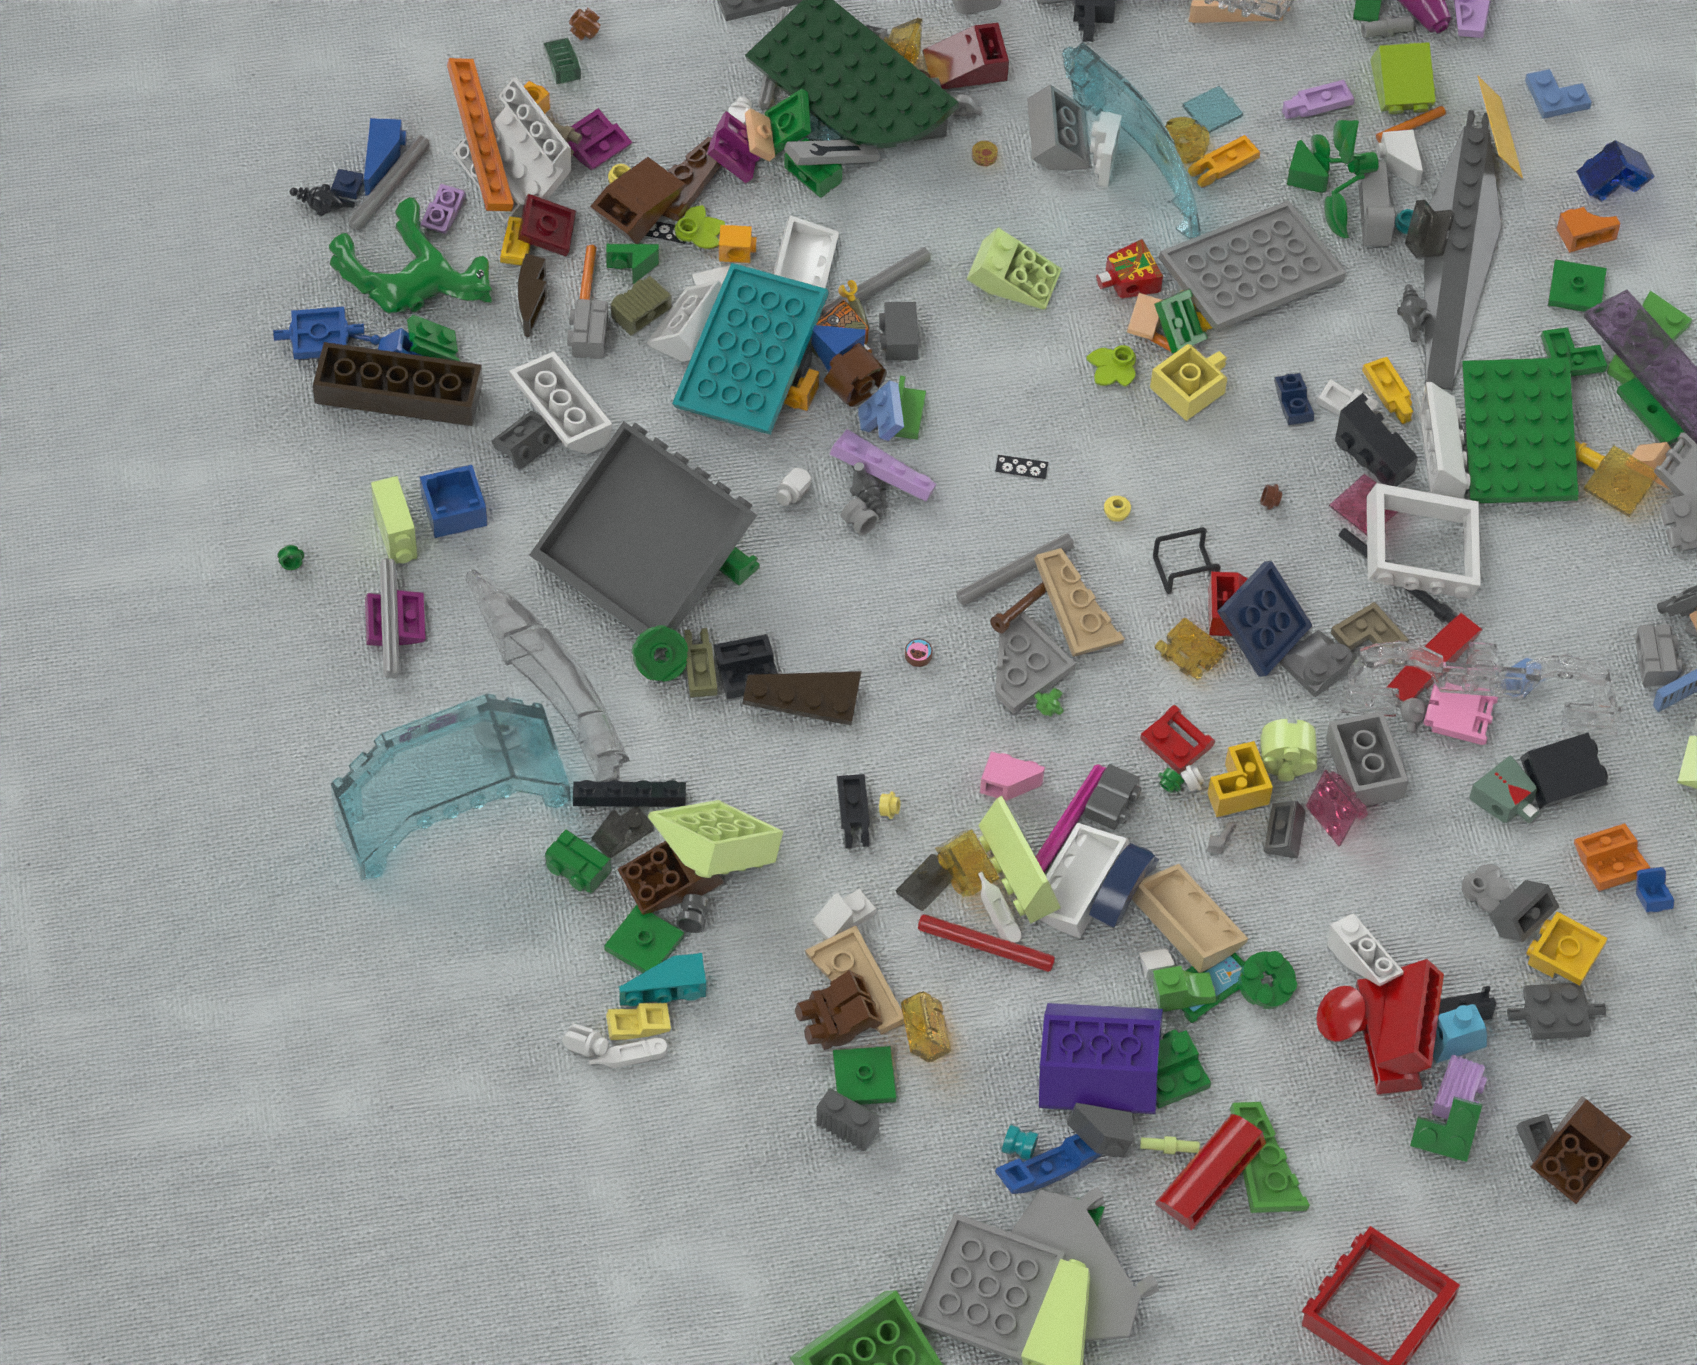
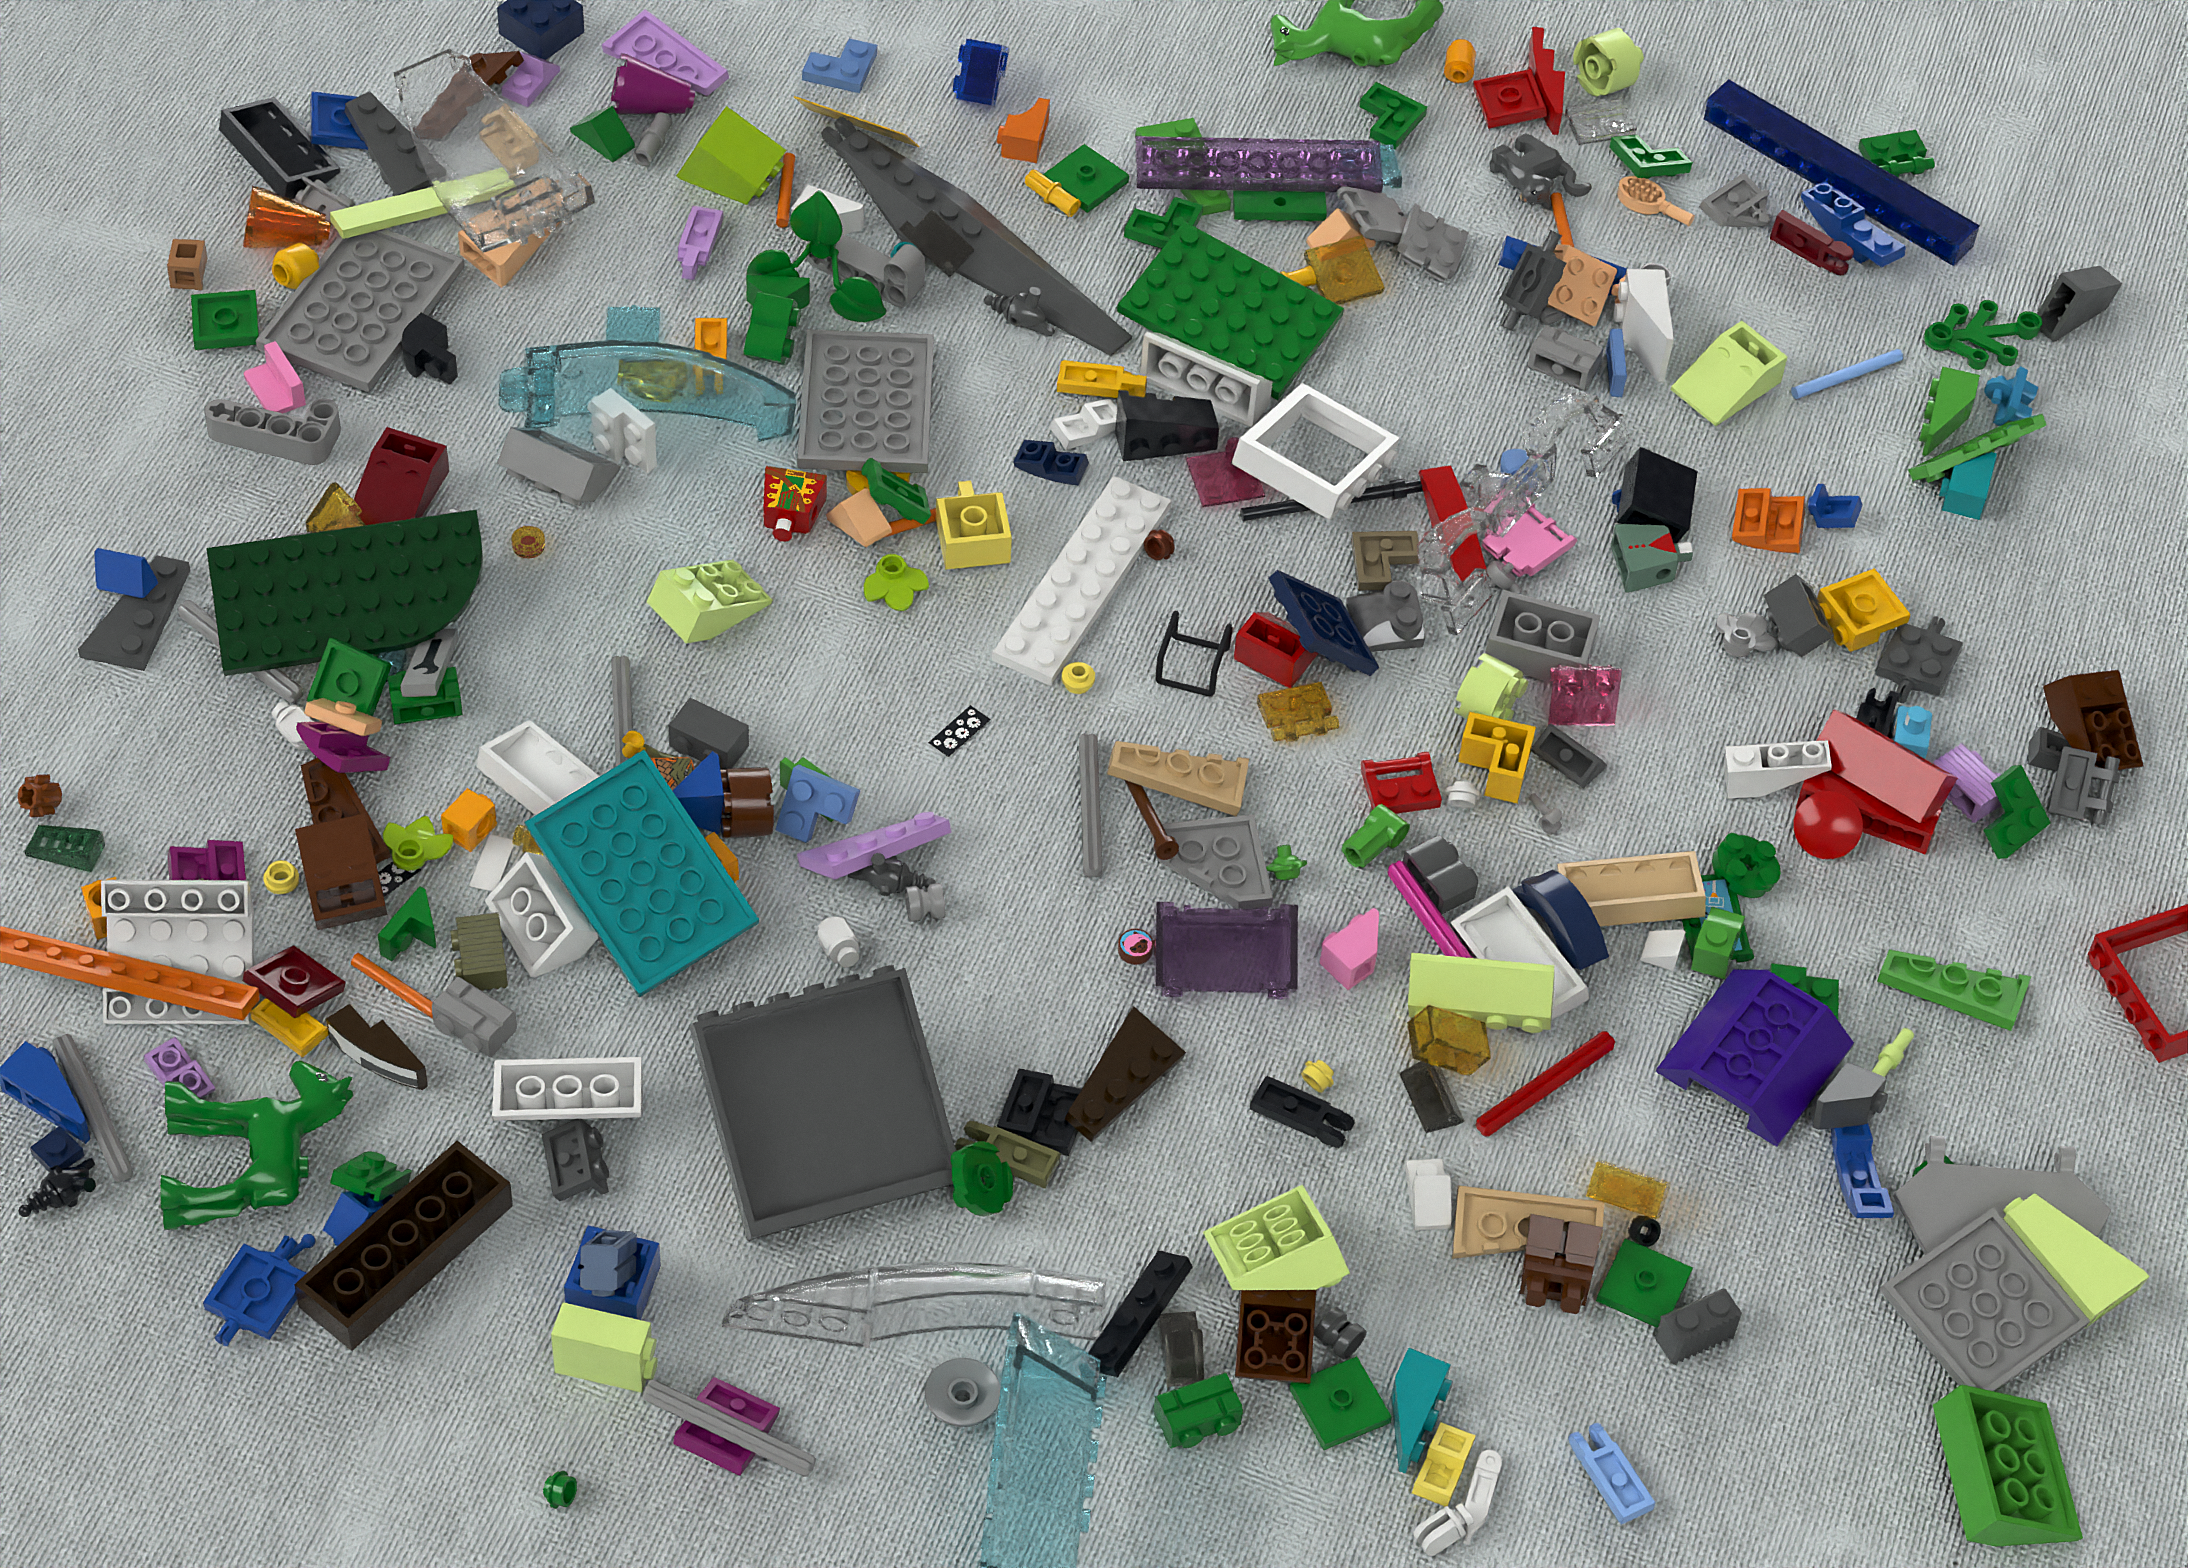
camera: 60 degrees left, 5 degrees down
(447, 485) = (608, 1261): none -> sand blue brick
(695, 1122) = (1612, 1474): none -> light blue hinge
(900, 1055) = (1652, 1234): none -> black hinge
(946, 698) = (1225, 950): none -> clear purple windscreen
(999, 911) = (1522, 1047): white piece -> none
(1020, 1142) = (1820, 1181): teal wheel -> none
(1123, 745) = (1380, 831): none -> bright green piece
(1170, 780) = (1451, 815): green plate -> none
(1206, 468) = (1081, 581): none -> white plate
(1212, 1171) = (1952, 1033): red brick -> none
(1267, 178) = (771, 328): none -> green brick
(1508, 1156) = (2073, 784): none -> dark grey plate
(1542, 274) = (1052, 193): none -> yellow axle

